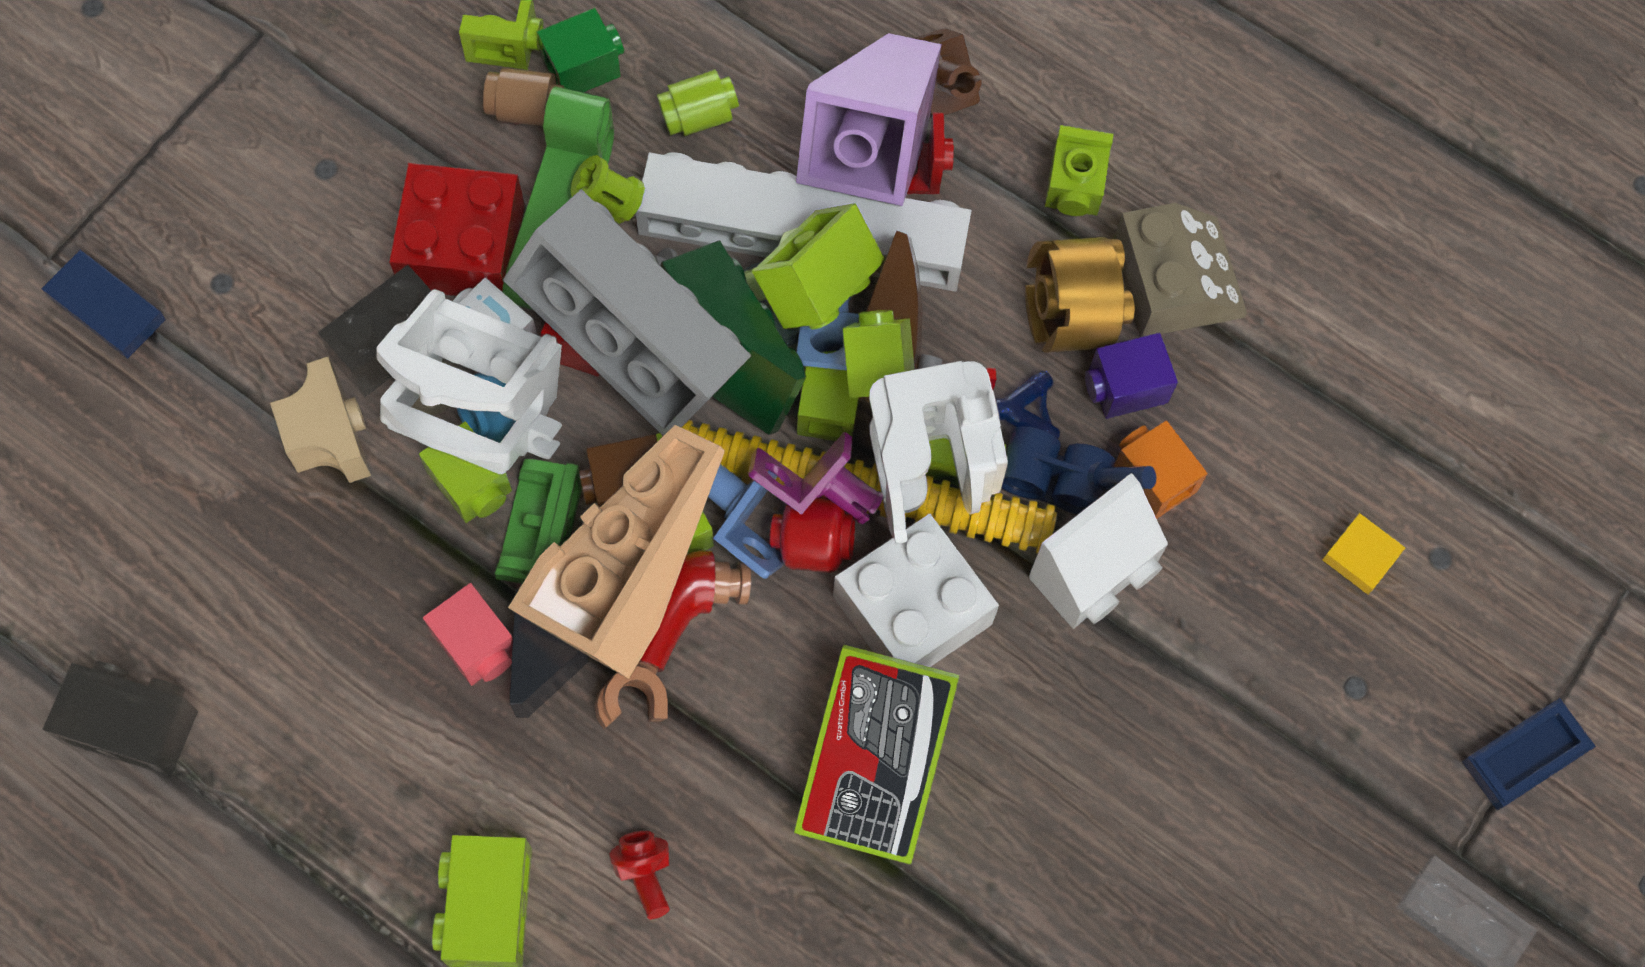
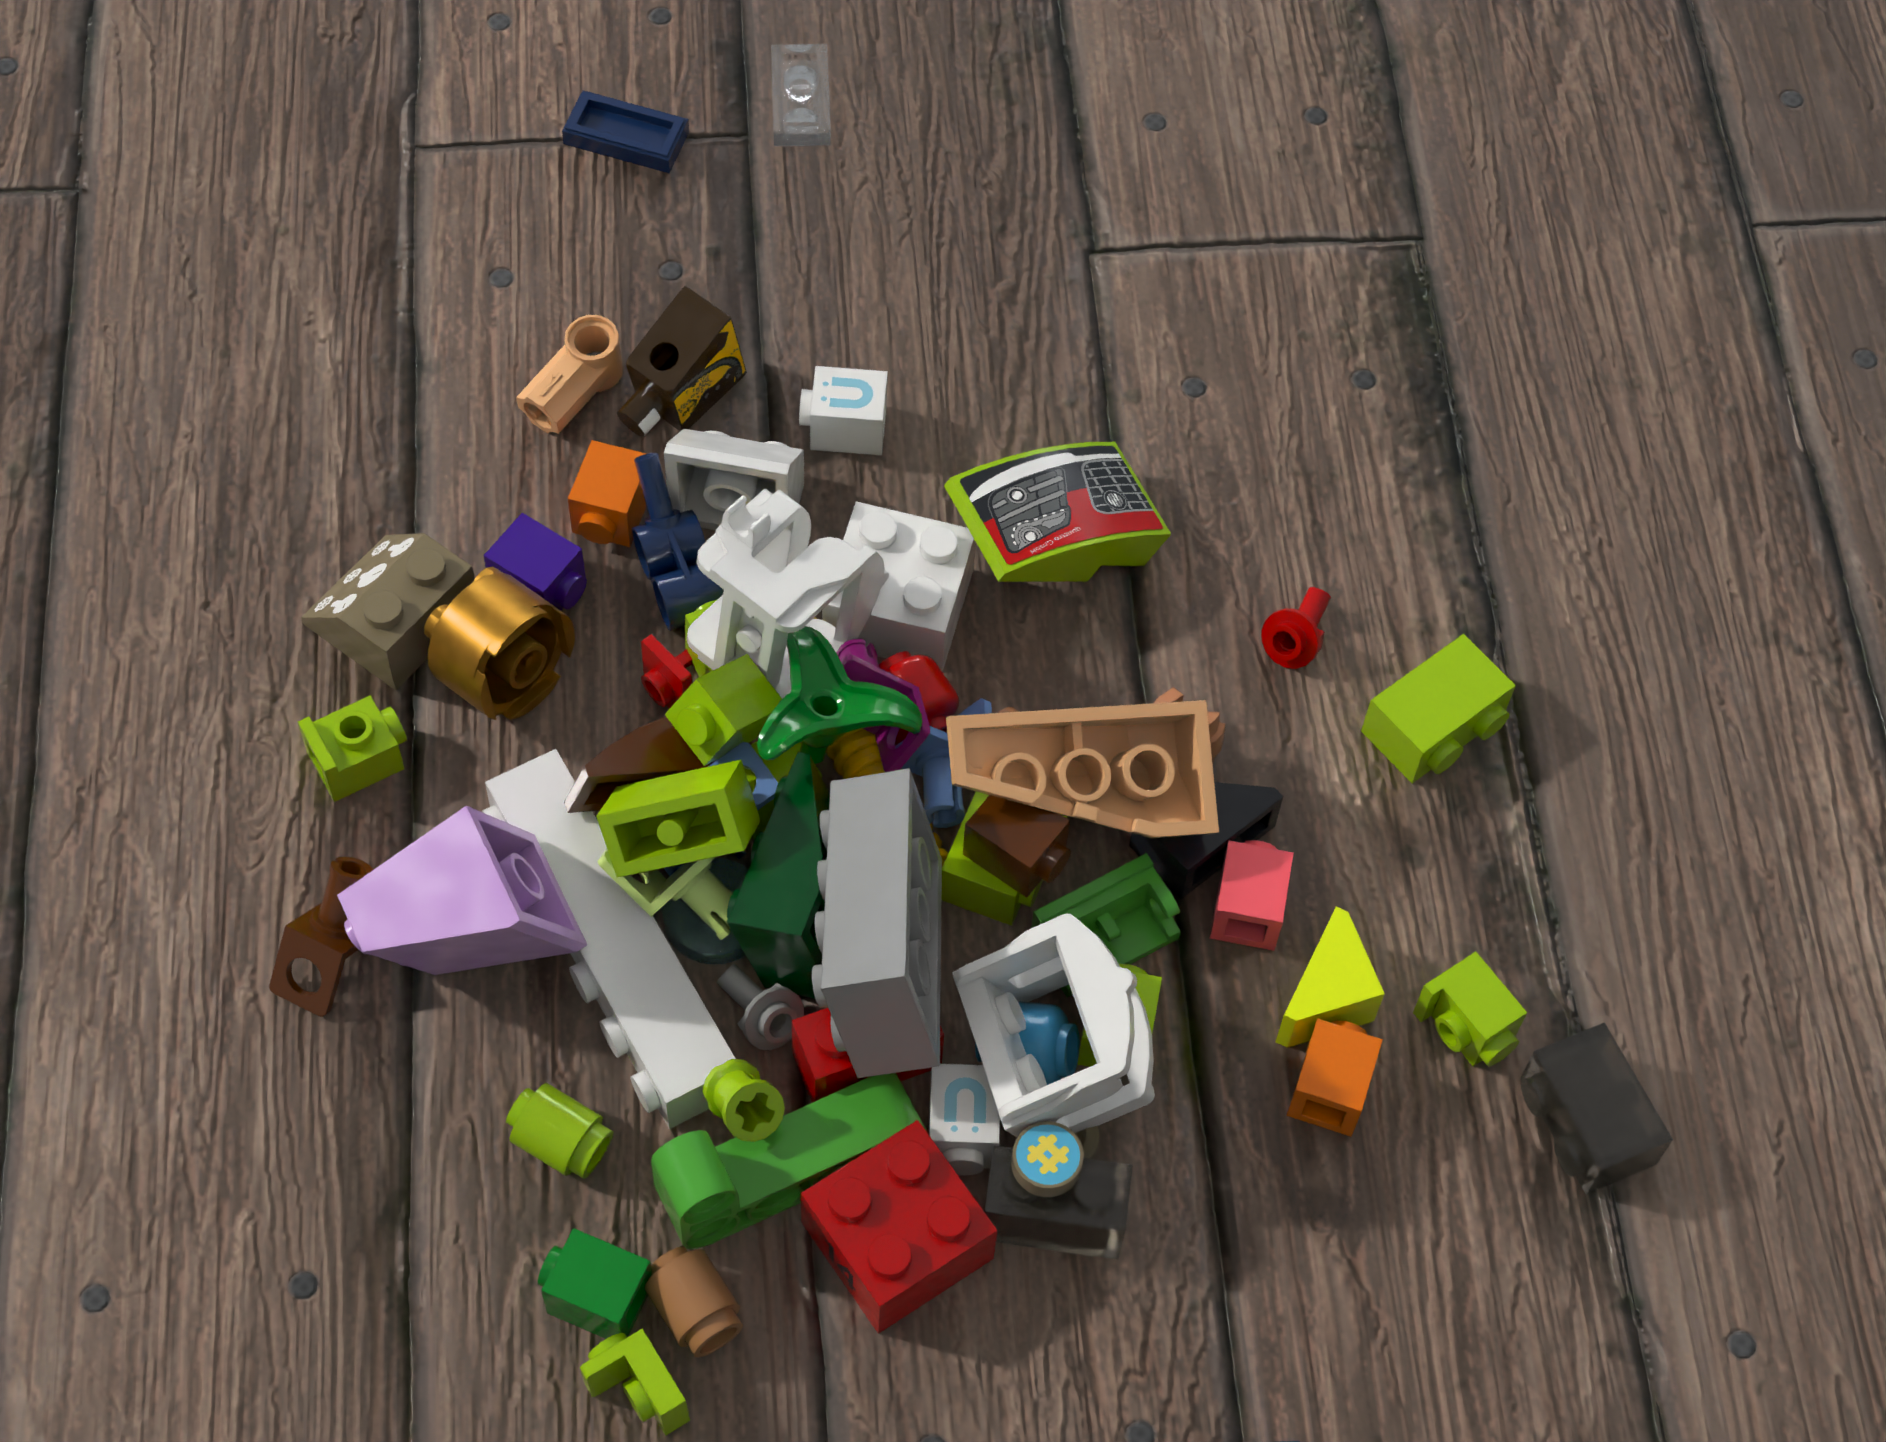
camera: 130 degrees left, 10 degrees down
(257, 702) = (1472, 1011): none -> lime brick
(302, 572) = (1335, 1076): none -> orange brick
(322, 425) = (1193, 1182): tan brick -> none
(358, 627) = (1334, 985): none -> neon yellow slope
(390, 304) = (1047, 1159): none -> tile
(819, 411) = (828, 703): none -> green piece
(1013, 406) = (614, 645): clear blue piece -> none
(1105, 692) = (845, 410): none -> white brick
(1233, 594) = (682, 365): none -> dark brown torso
(1290, 520) = (573, 376): none -> light nougat piece
(1364, 554) = (546, 319): yellow tile -> none

